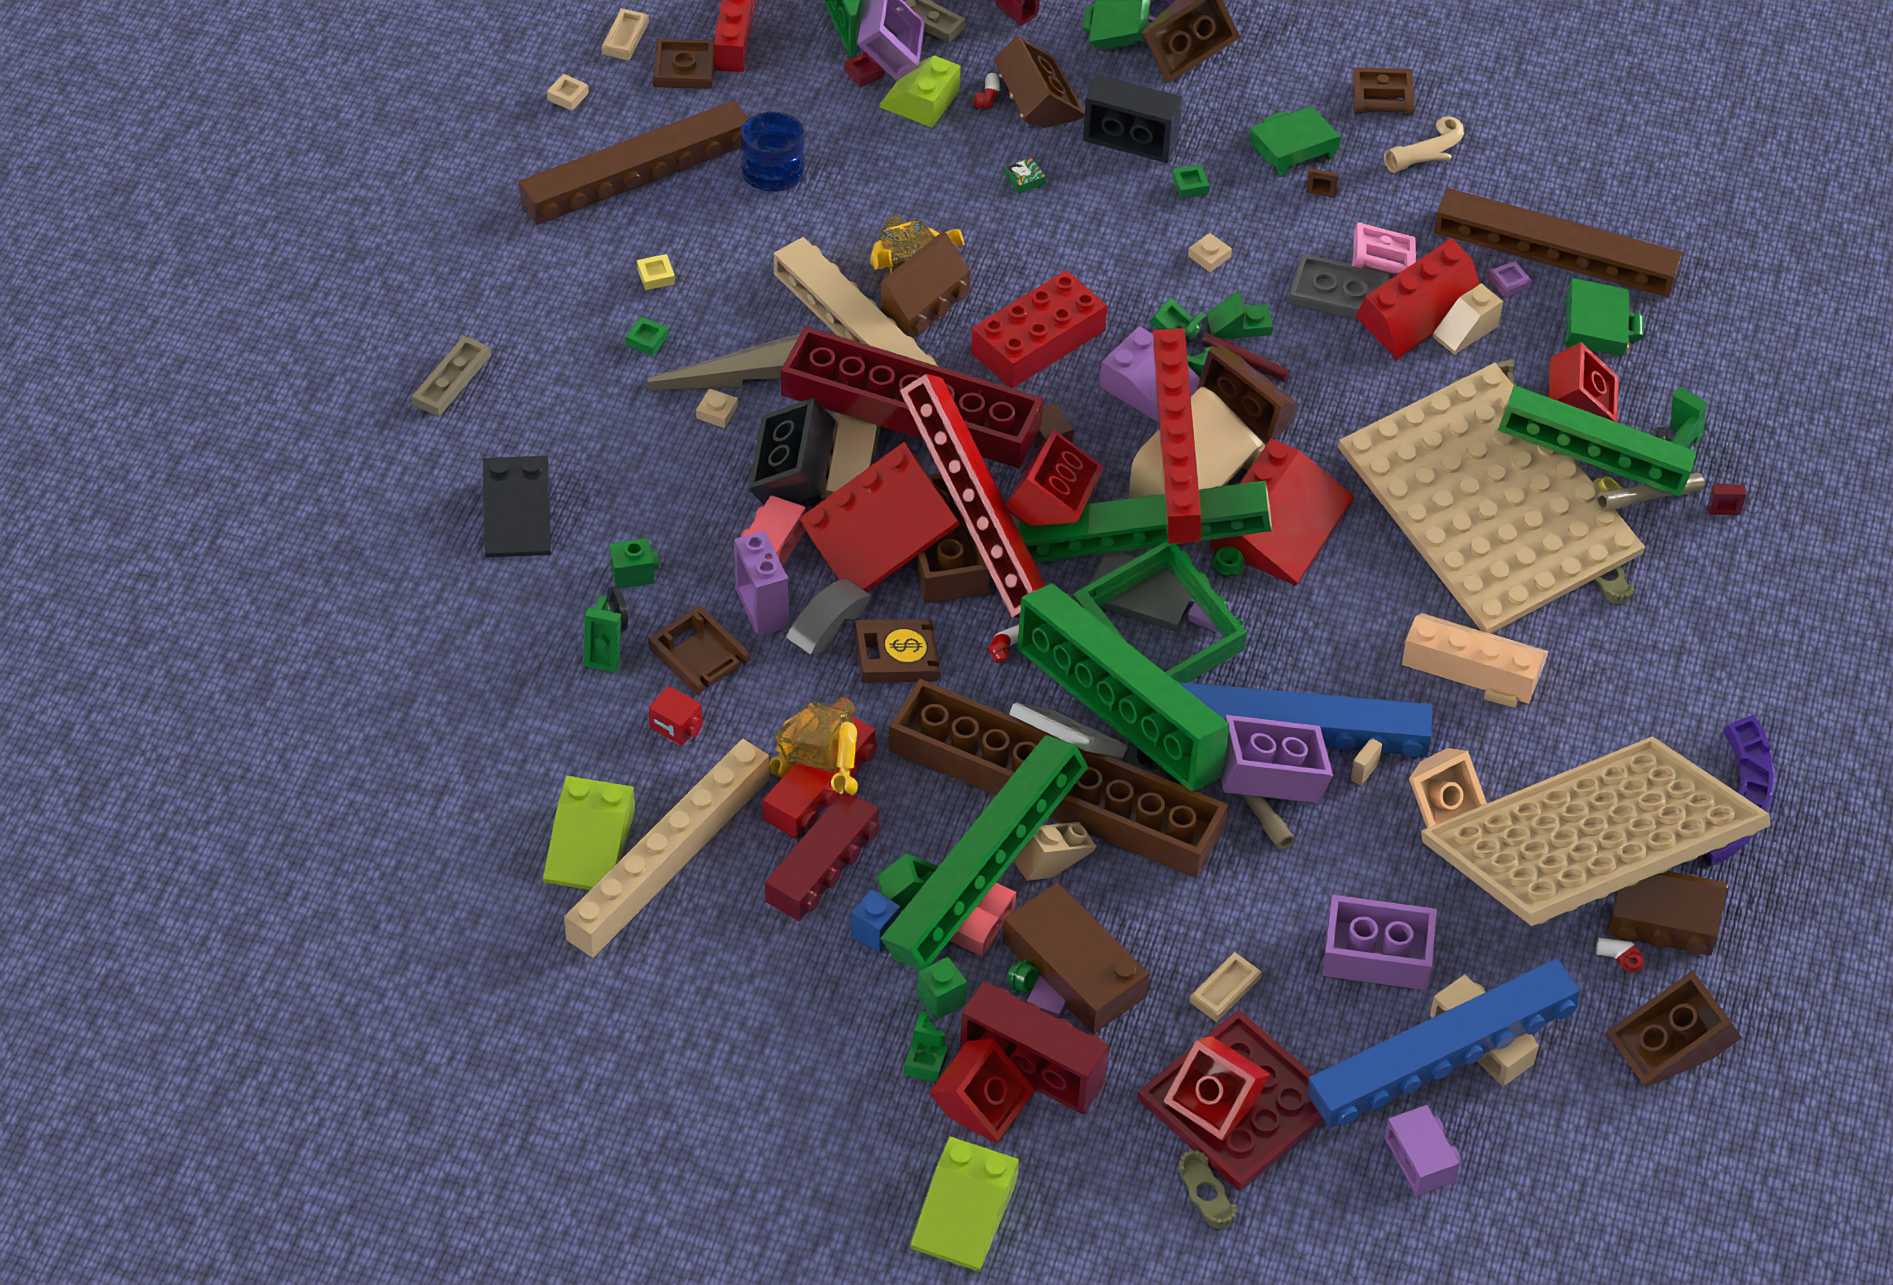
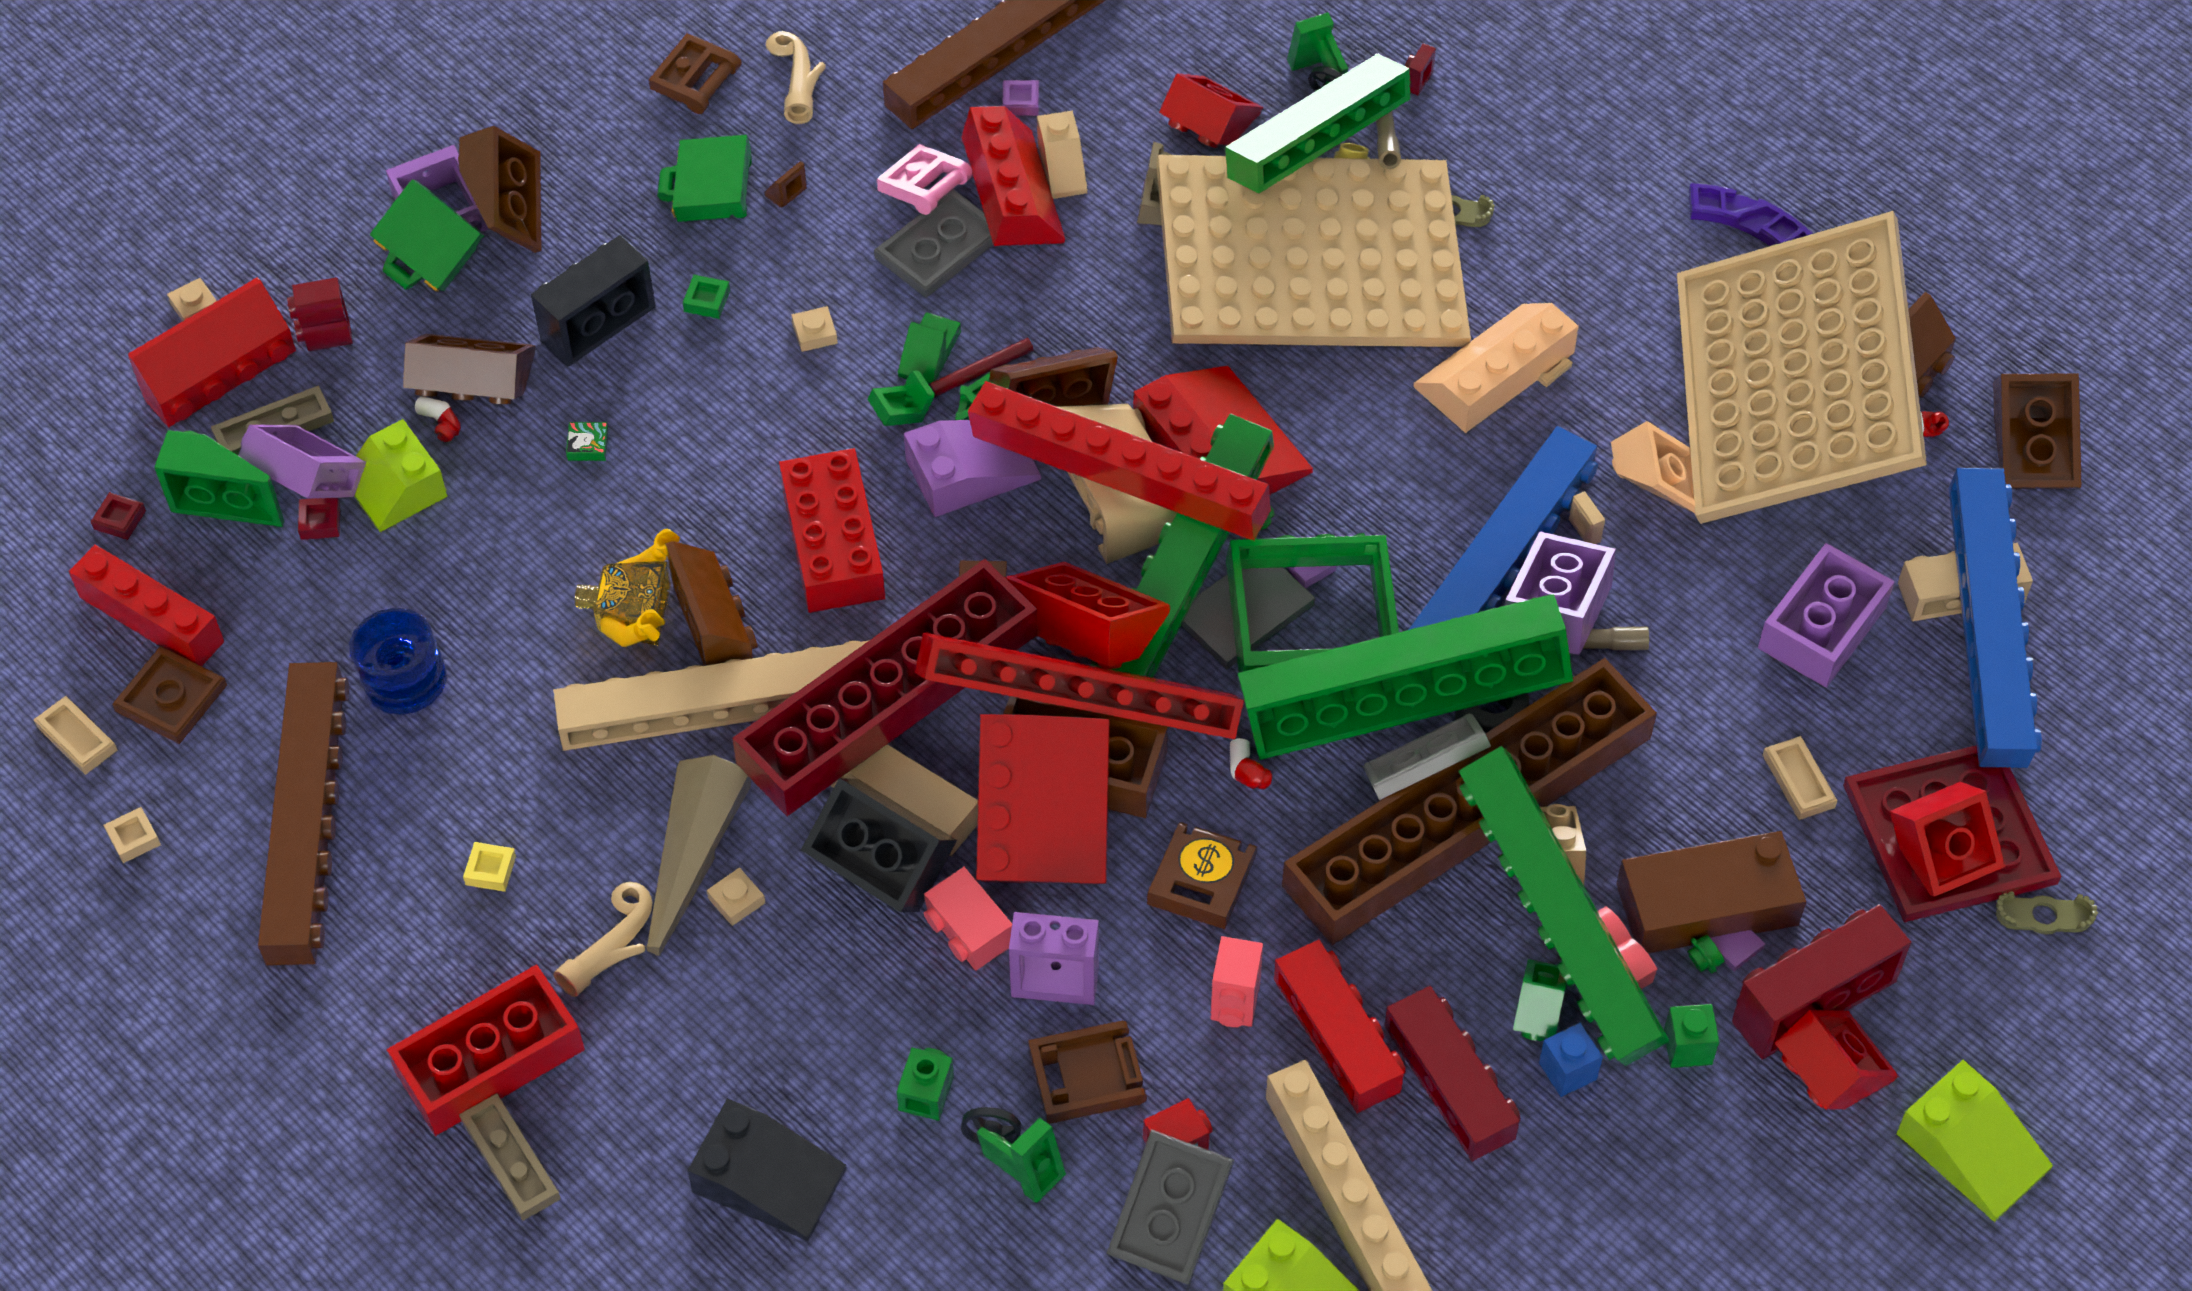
camera: 60 degrees left, 5 degrees up
(516, 325) = (486, 1048): none -> red brick
(614, 730) = (1170, 1207): none -> dark grey tile
(637, 360) = (576, 974): none -> tan plant
(646, 336) = (584, 919): green plate -> none
(806, 684) = (1236, 982): none -> coral brick
(821, 739) = (1321, 995): clear yellow torso -> none
(824, 614) = (1128, 916): dark grey brick -> none
(926, 1052) = (1754, 1091): green slope -> none
(1422, 1149) = (2084, 702): medium lavender brick -> none
(1601, 318) = (1126, 50): green piece -> none

